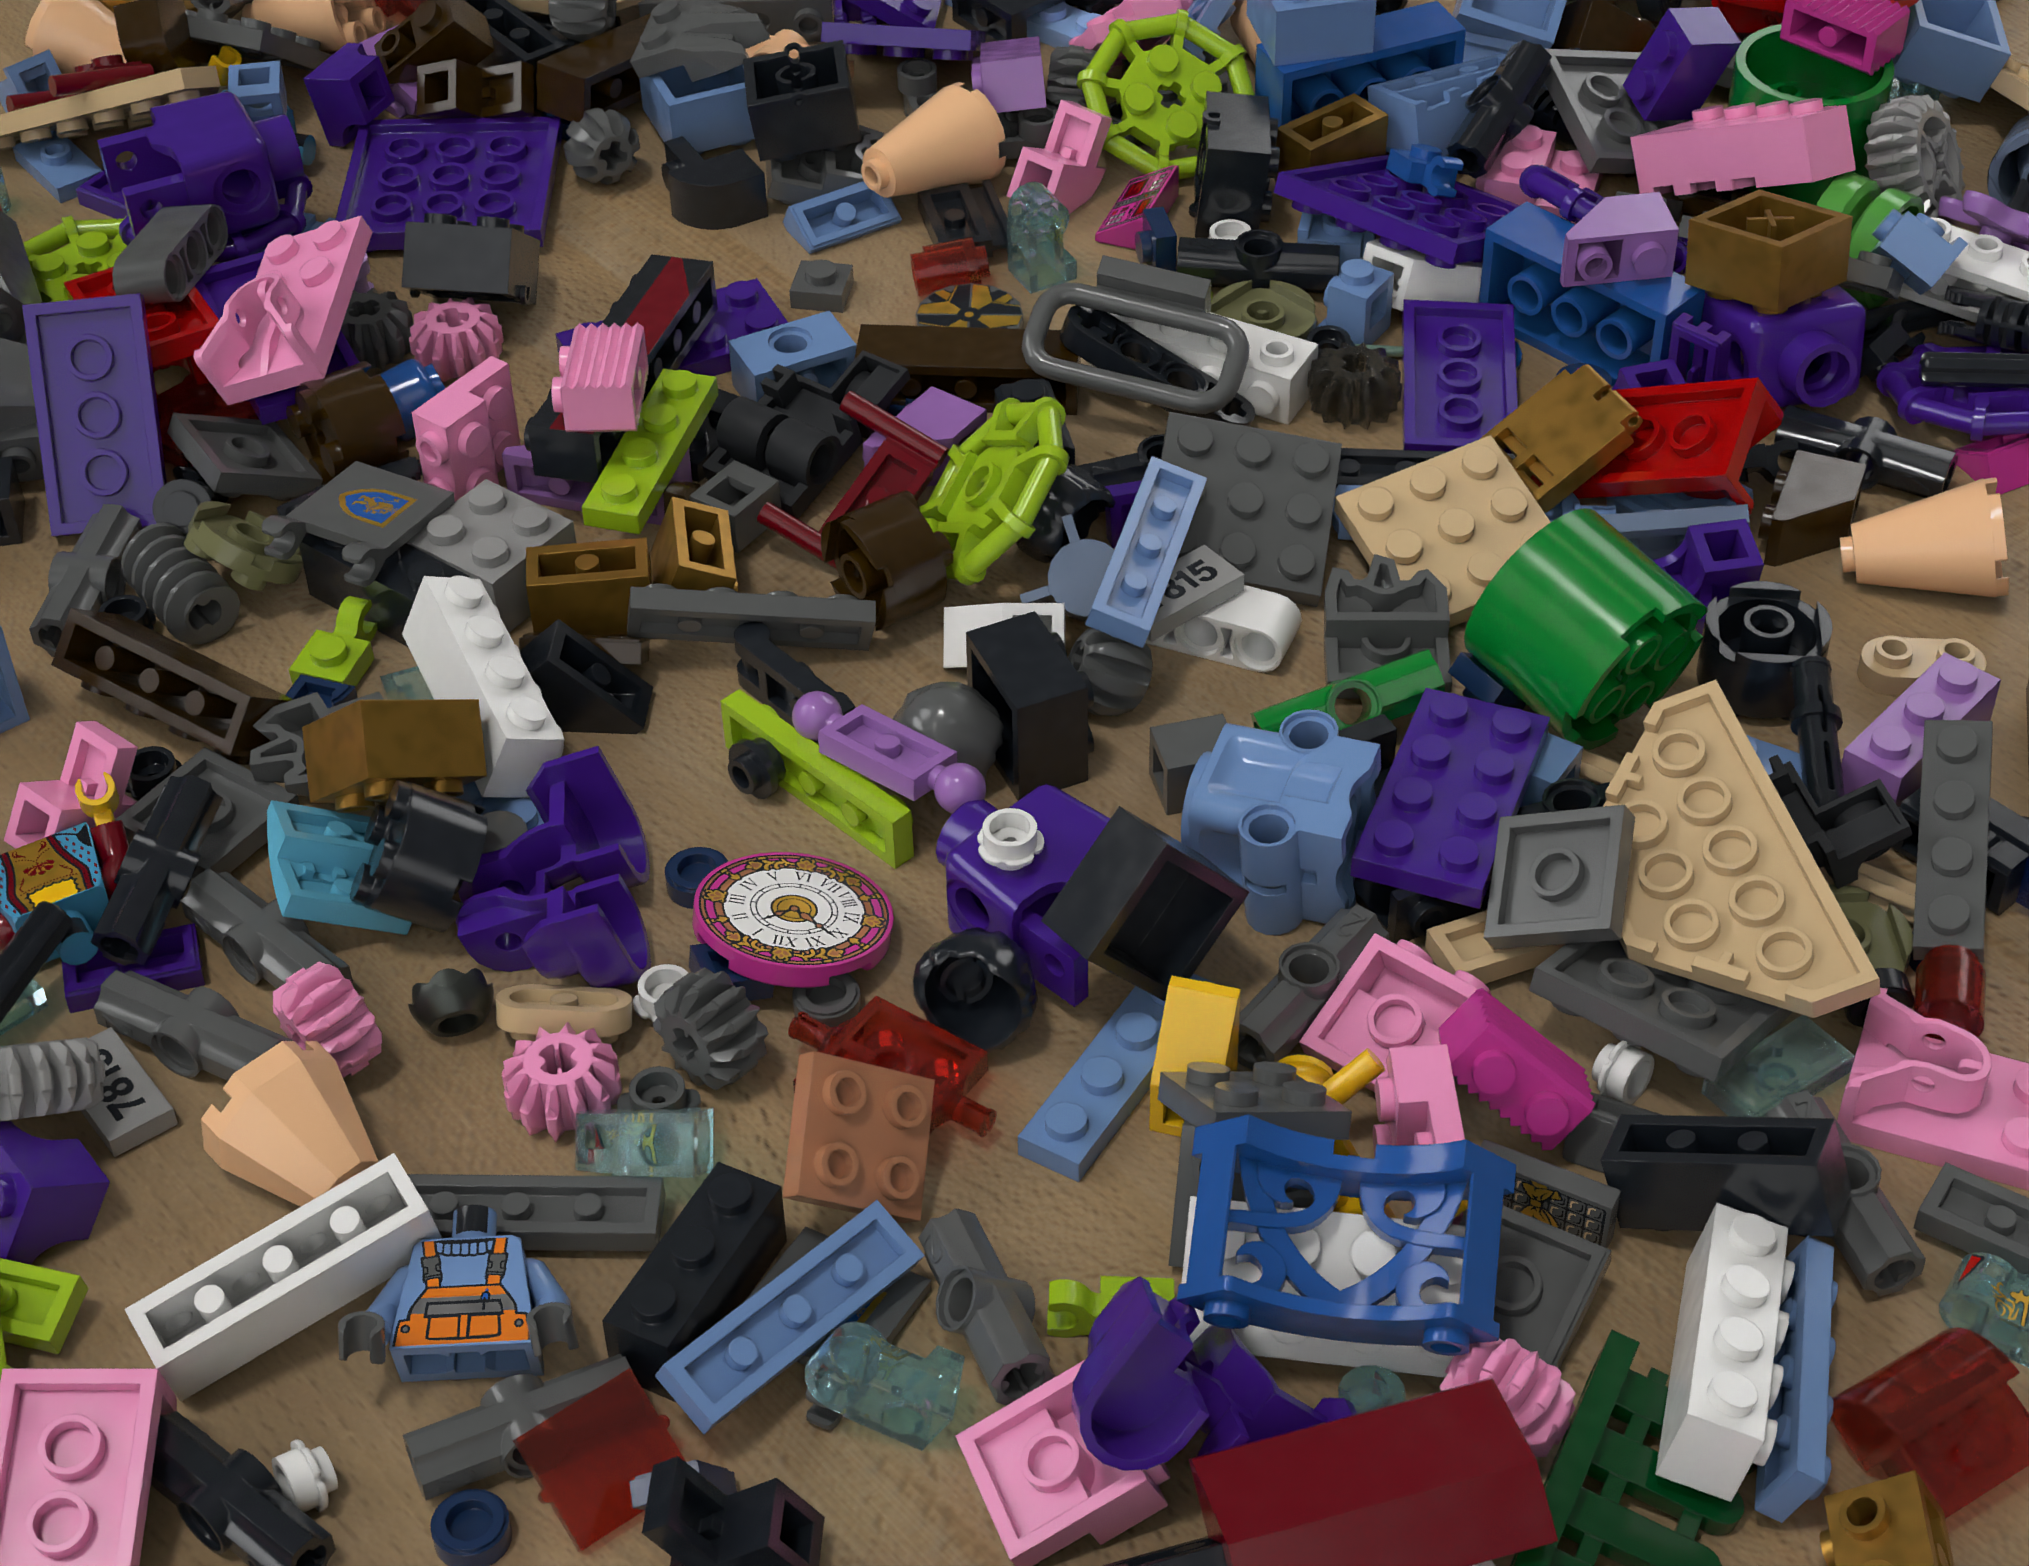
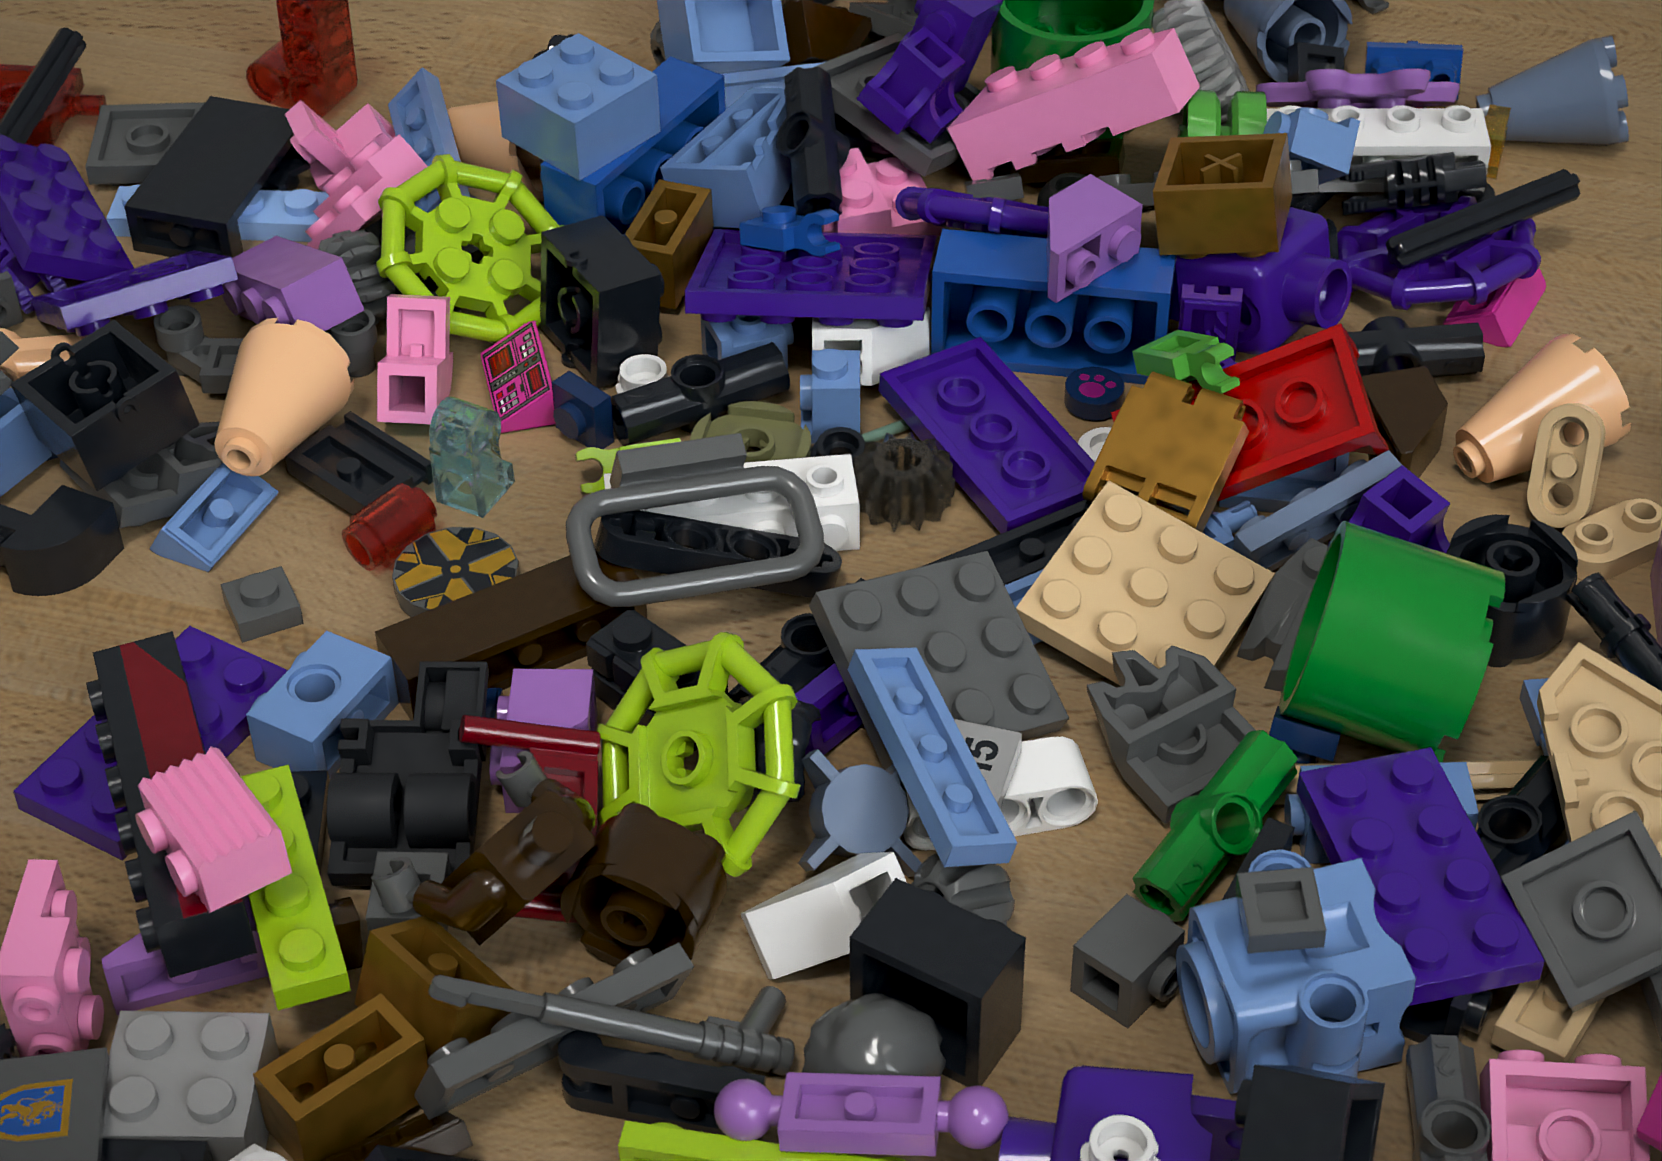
camera: 35 degrees left, 0 degrees up
(798, 493) = (508, 866): none -> dark brown torso
(857, 678) = (716, 1039): none -> dark grey piece
(1272, 743) = (1280, 910): none -> dark grey plate
(1618, 91) = (916, 87): none -> dark purple brick
(1628, 369) = (1187, 358): none -> bright green plate
(1912, 582) = (1564, 463): none -> tan plate

